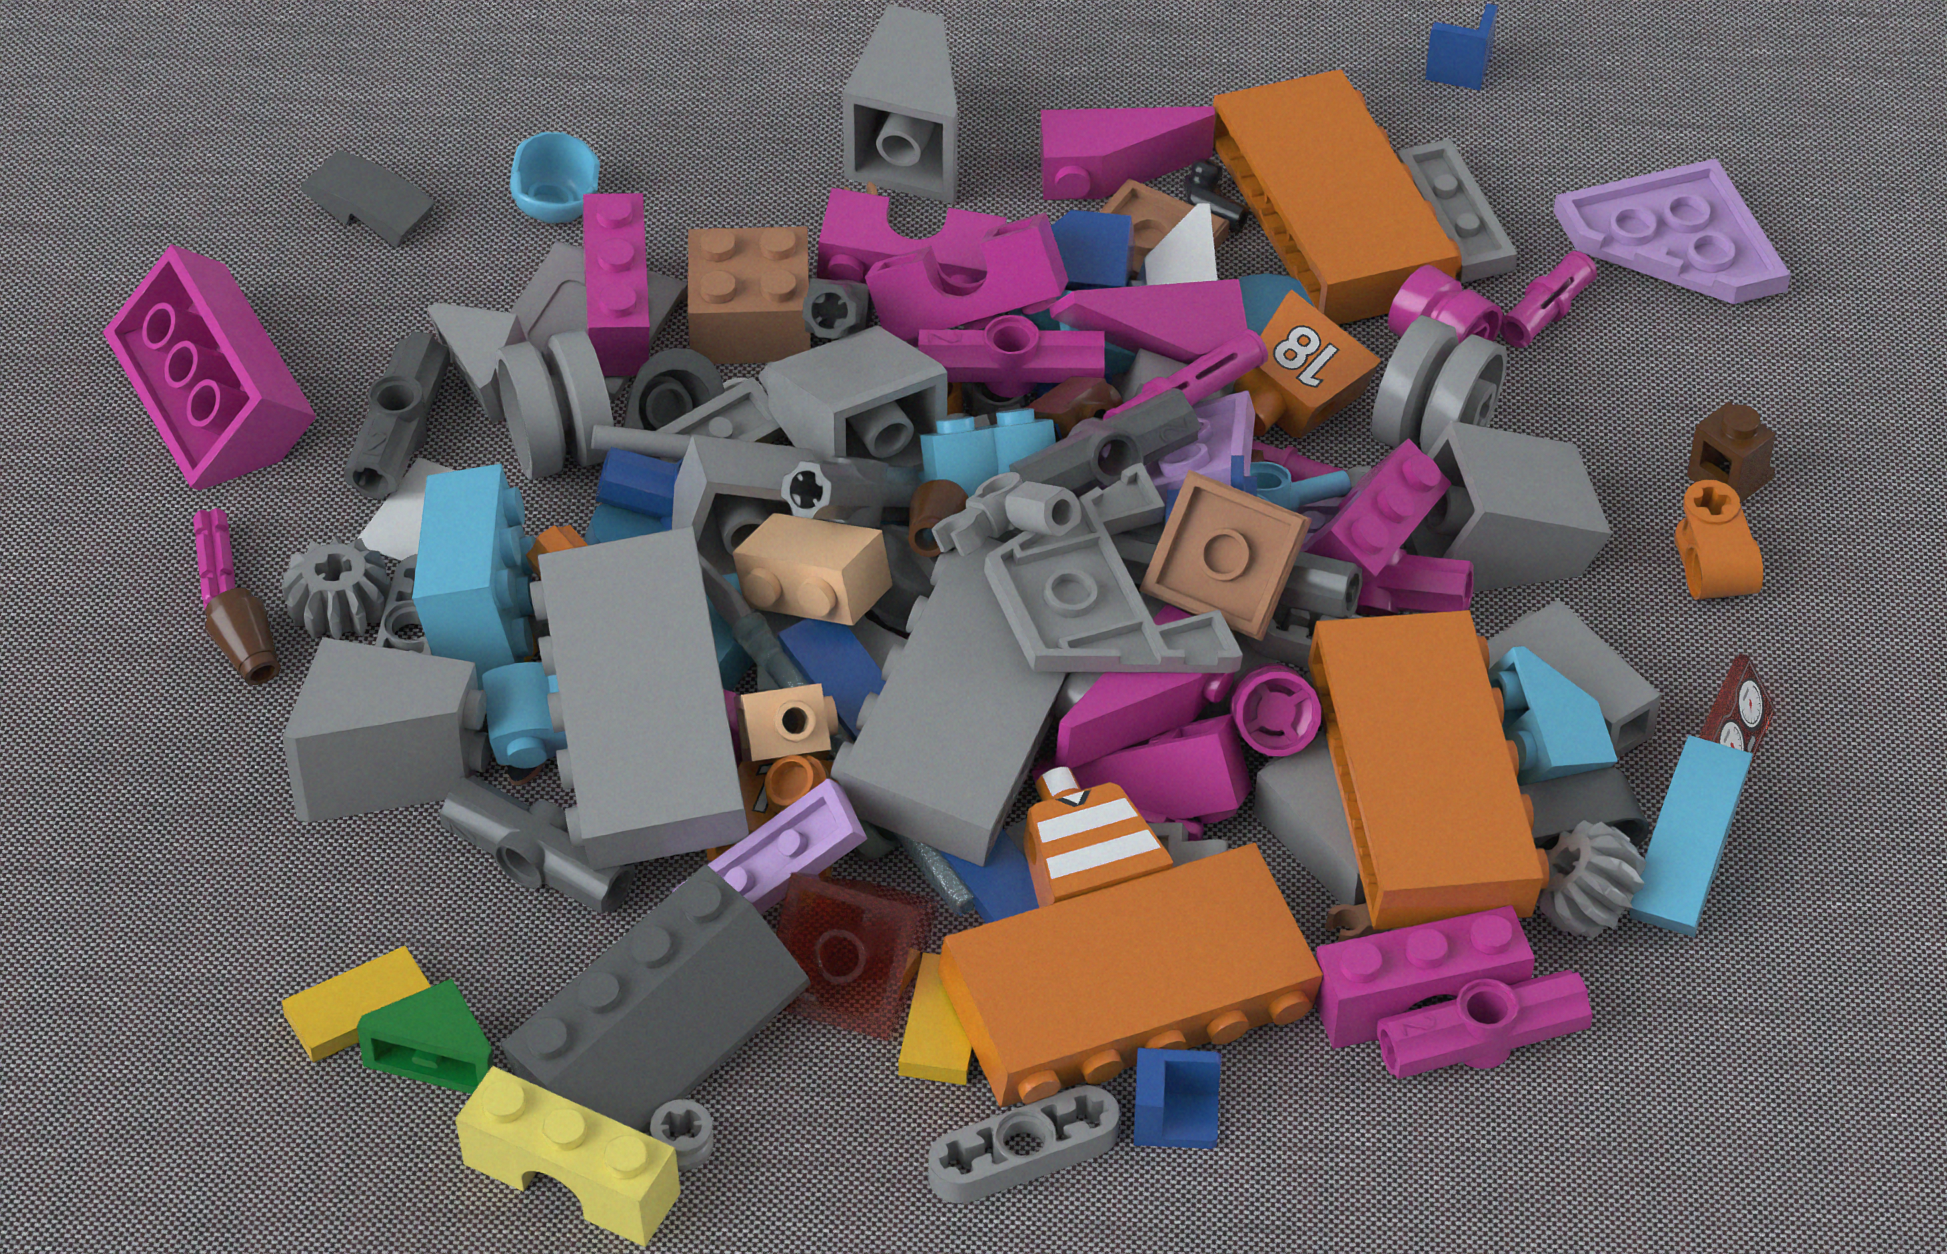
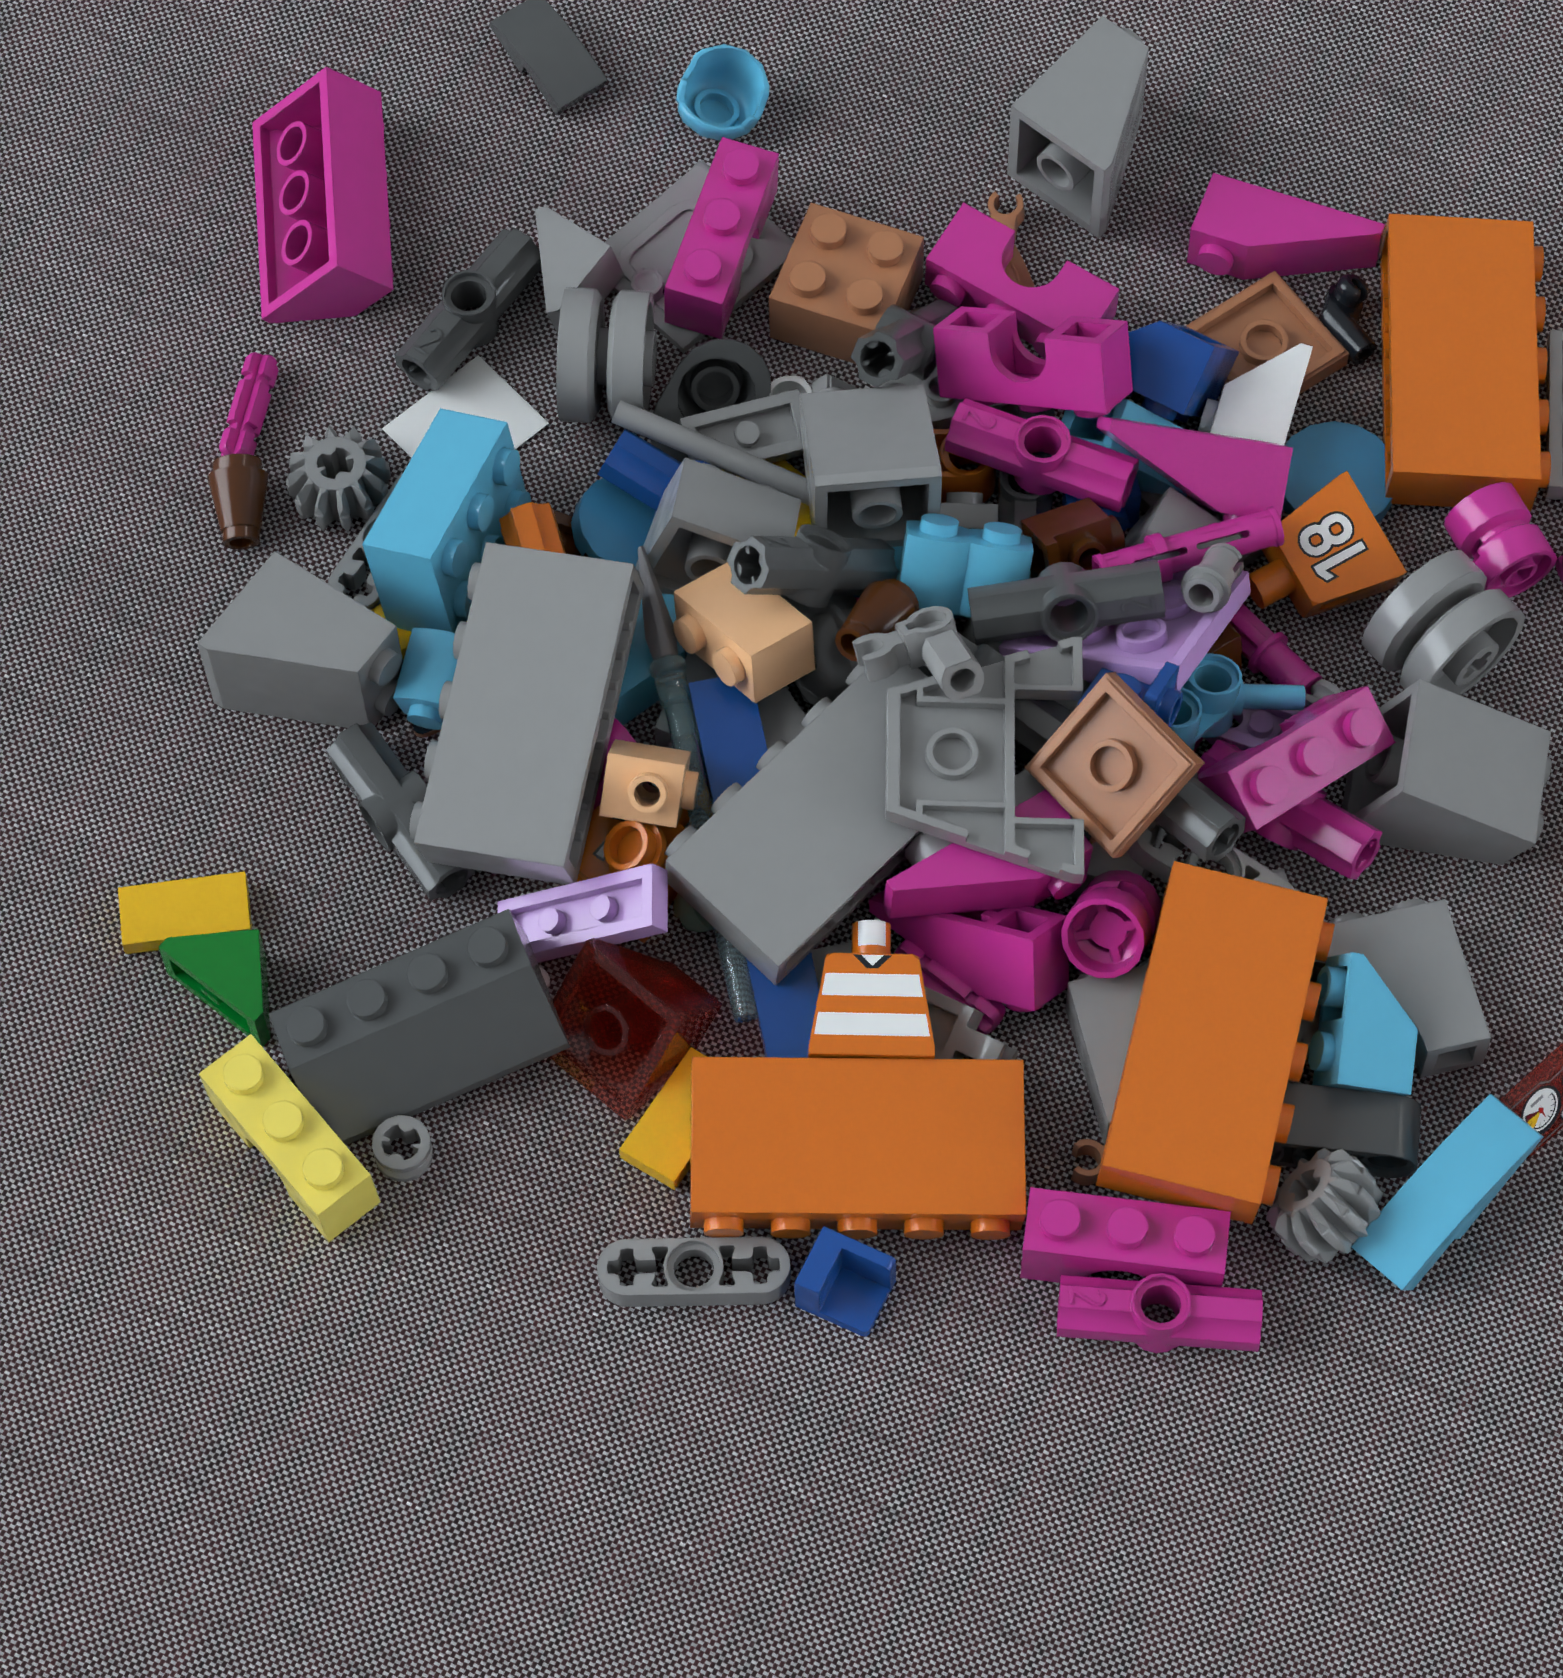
camera: 25 degrees right, 15 degrees up
(1231, 407) = (1209, 584): none -> light grey pin

